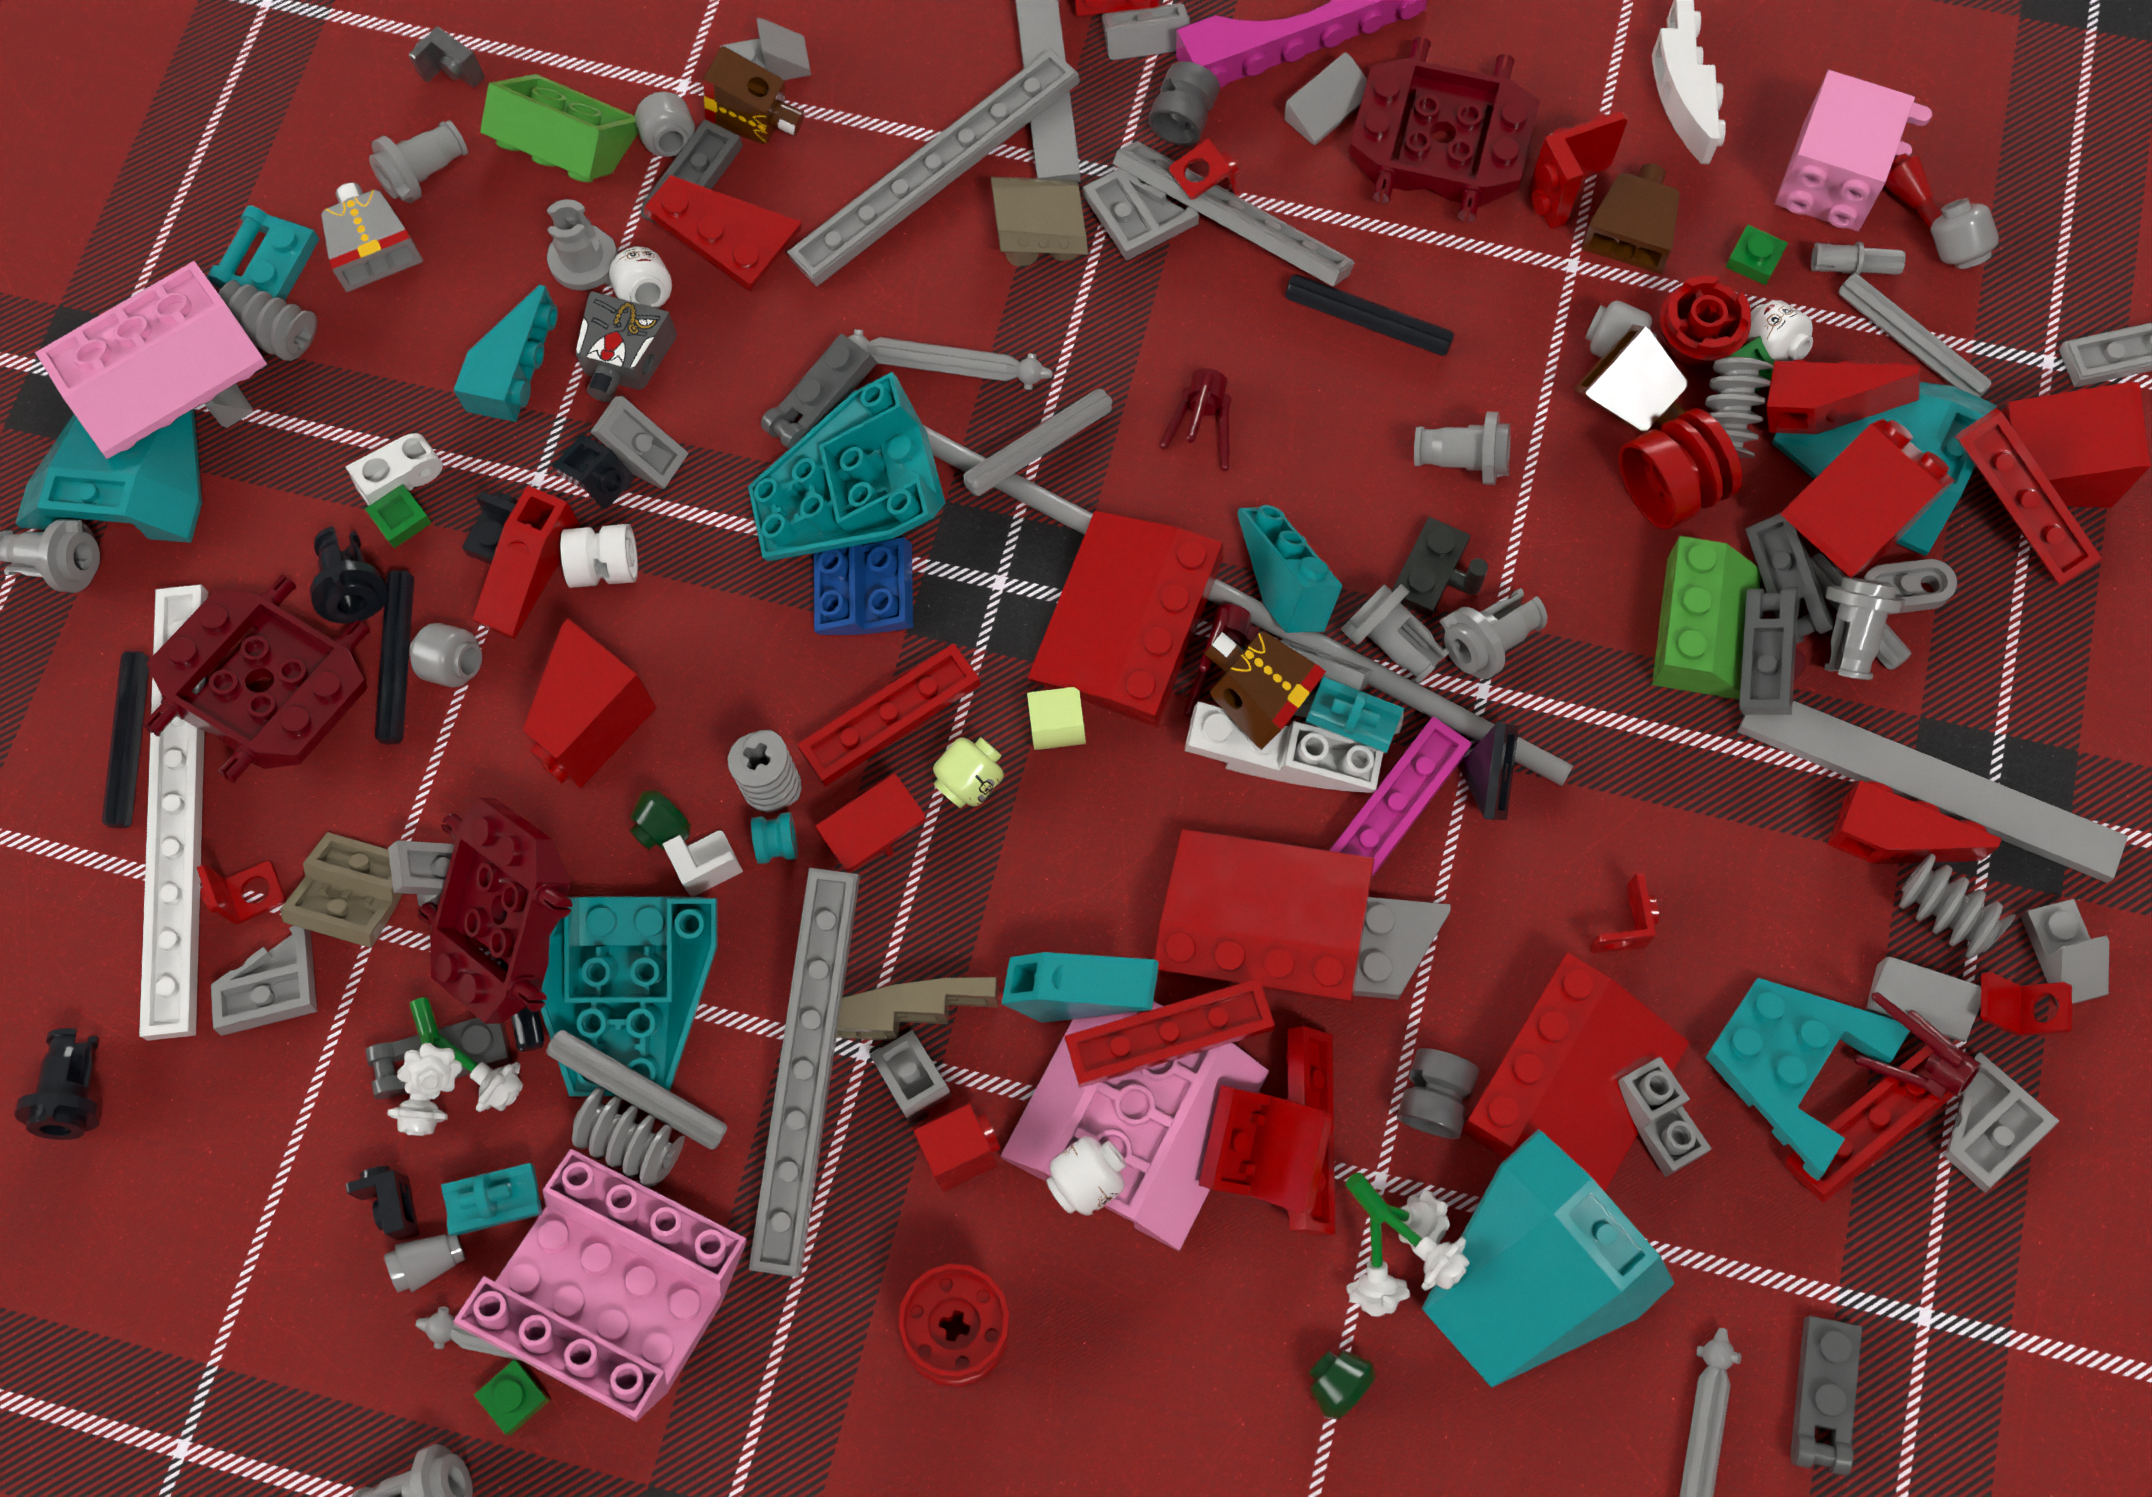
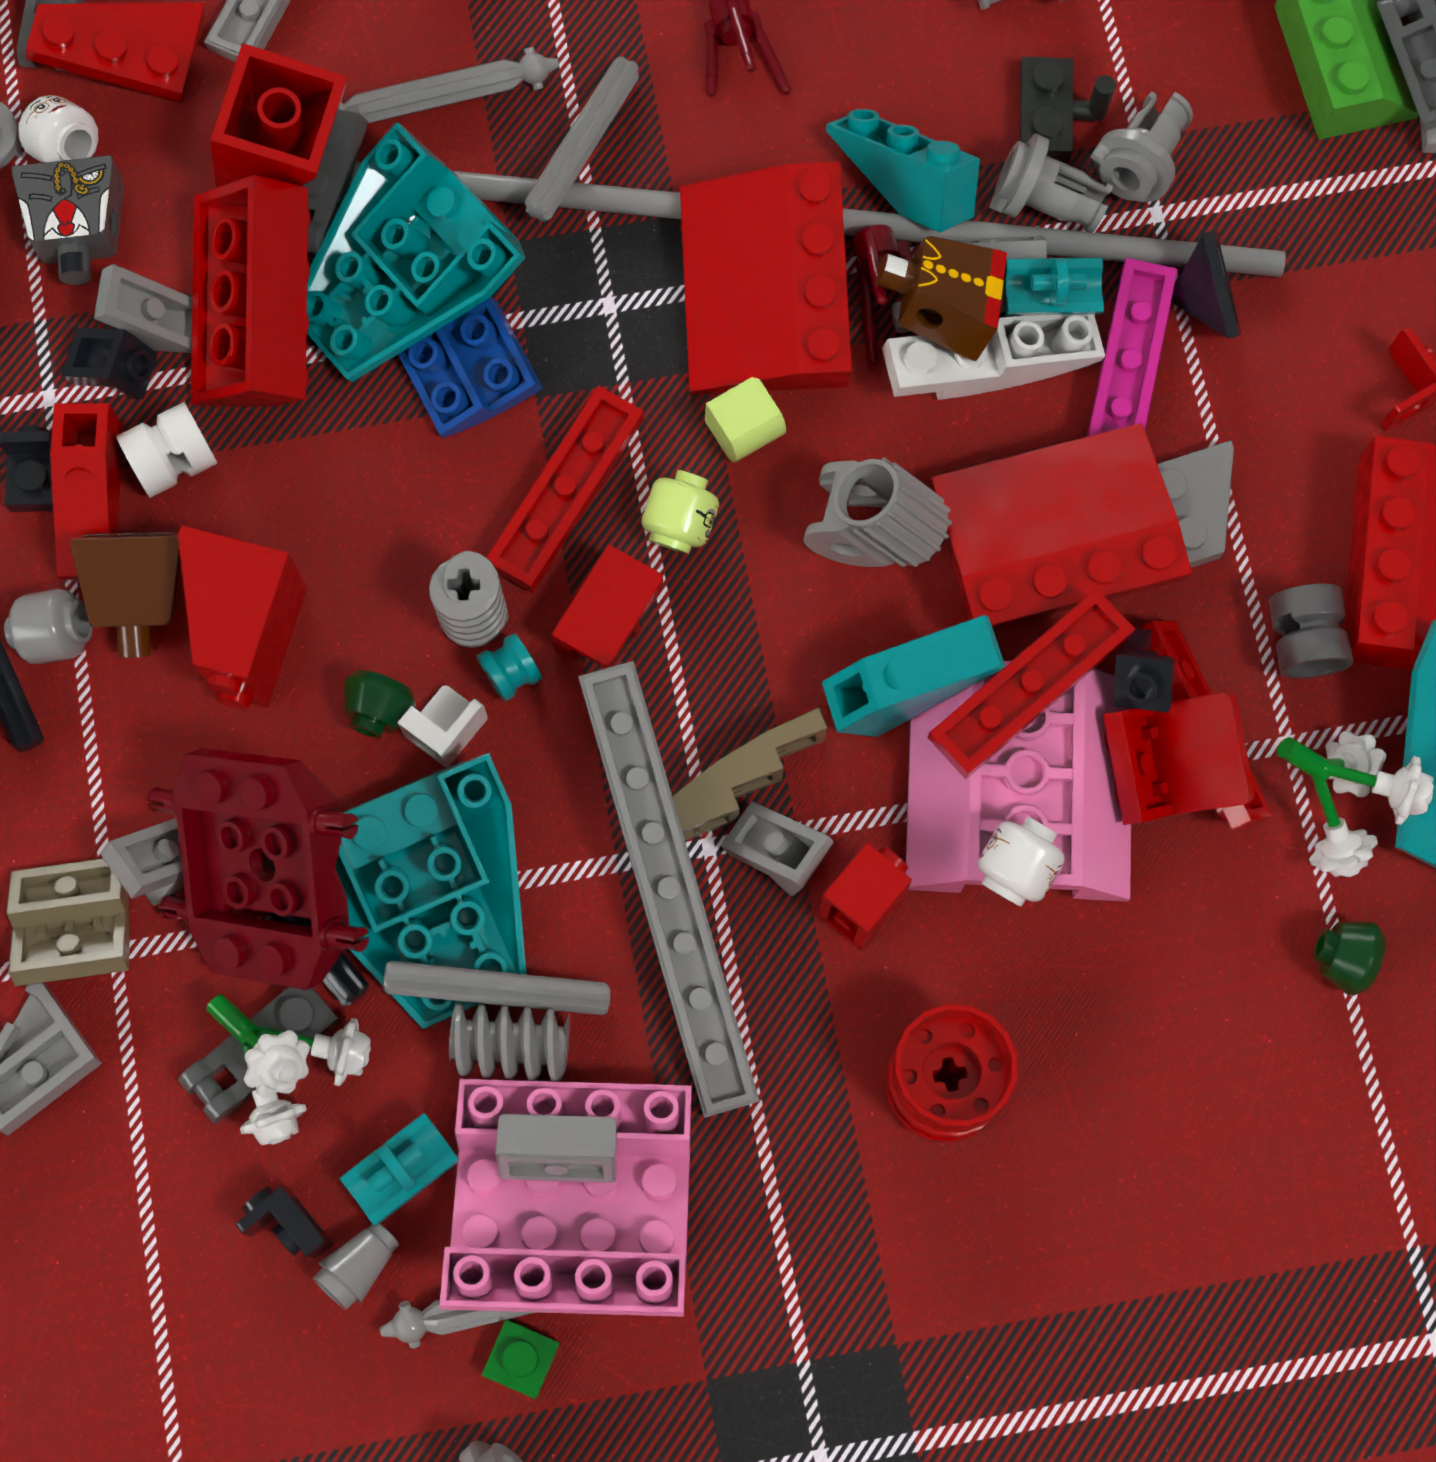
camera: 30 degrees left, 5 degrees up
(513, 646) = (129, 583): none -> reddish brown torso
(613, 1238) = (556, 1148): none -> light grey slope
(720, 462) = (250, 294): none -> red slope
(792, 334) = (274, 118): none -> red slope
(1135, 859) = (904, 531): none -> light grey piece
(1268, 1064) = (1142, 675): none -> black bracket

